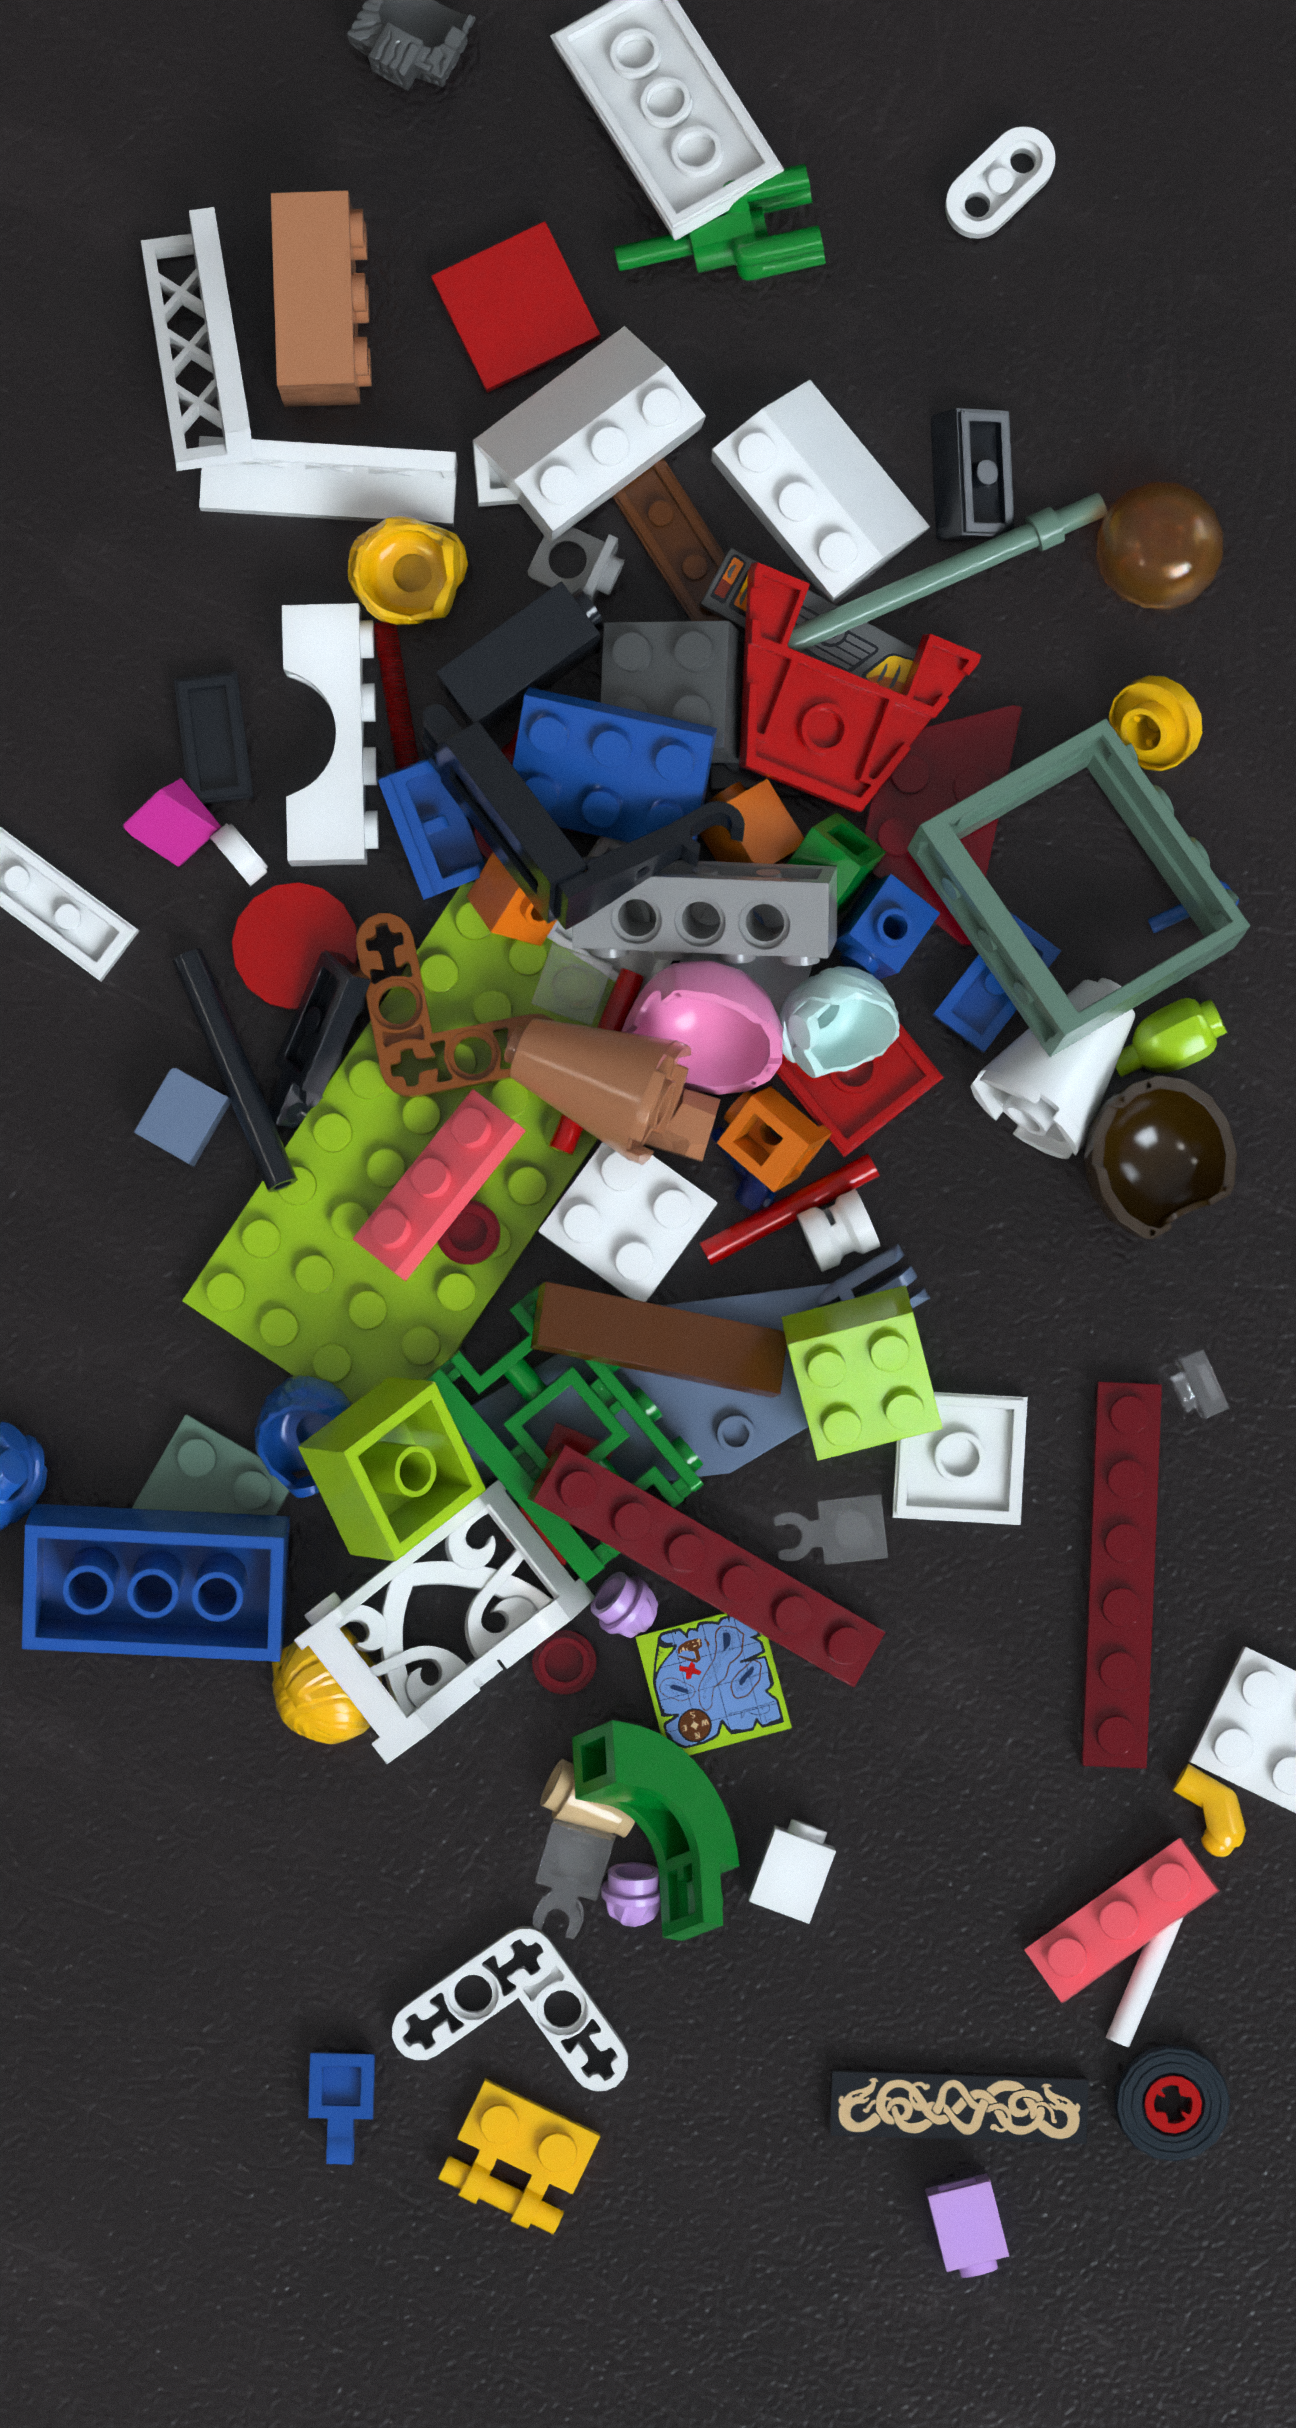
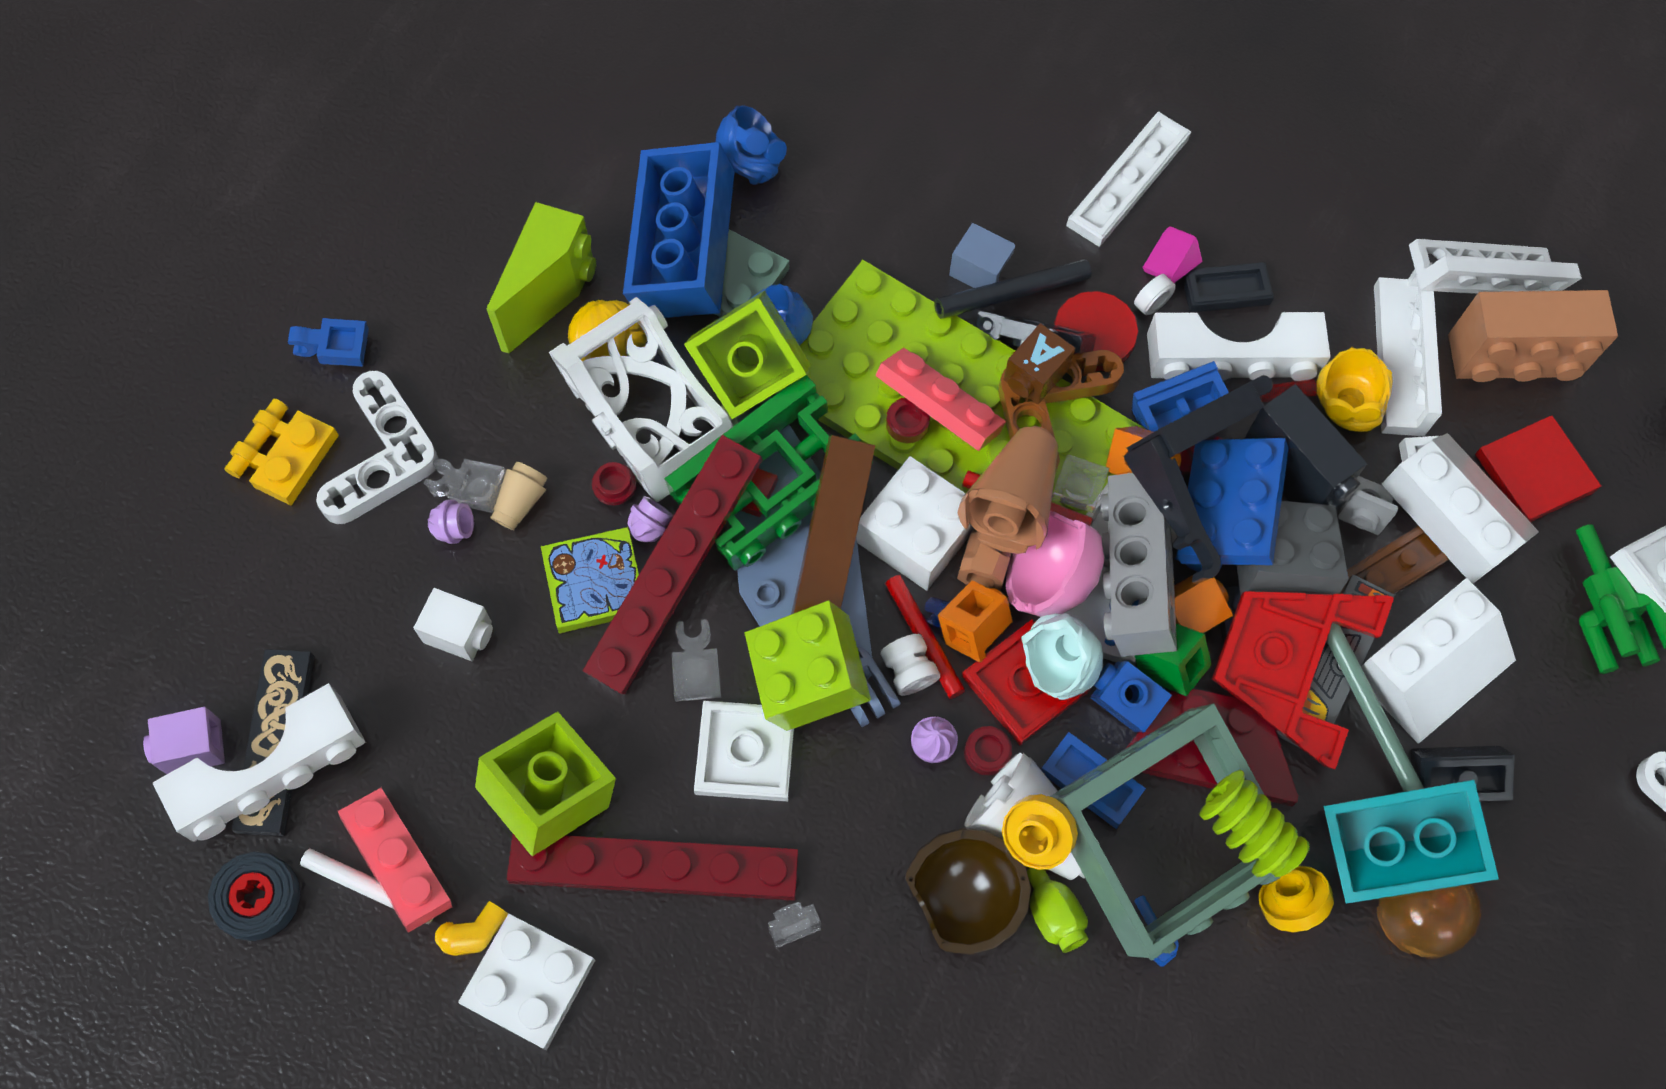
camera: 90 degrees right, 20 degrees down
(229, 1783) = (541, 274): none -> lime slope
(400, 1043) = (1038, 364): none -> reddish brown brick
(673, 1807) = (509, 544): green arch -> none
(942, 1197) = (934, 739): none -> lavender plate
(953, 1123) = (987, 750): none -> dark red tile
(1025, 1723) = (544, 783): none -> lime brick
(1049, 2177) = (315, 735): none -> white arch
(1085, 572) = (1411, 842): none -> teal slope
(1086, 784) = (1255, 825): none -> lime piece
(1101, 1065) = (1039, 831): none -> yellow plate

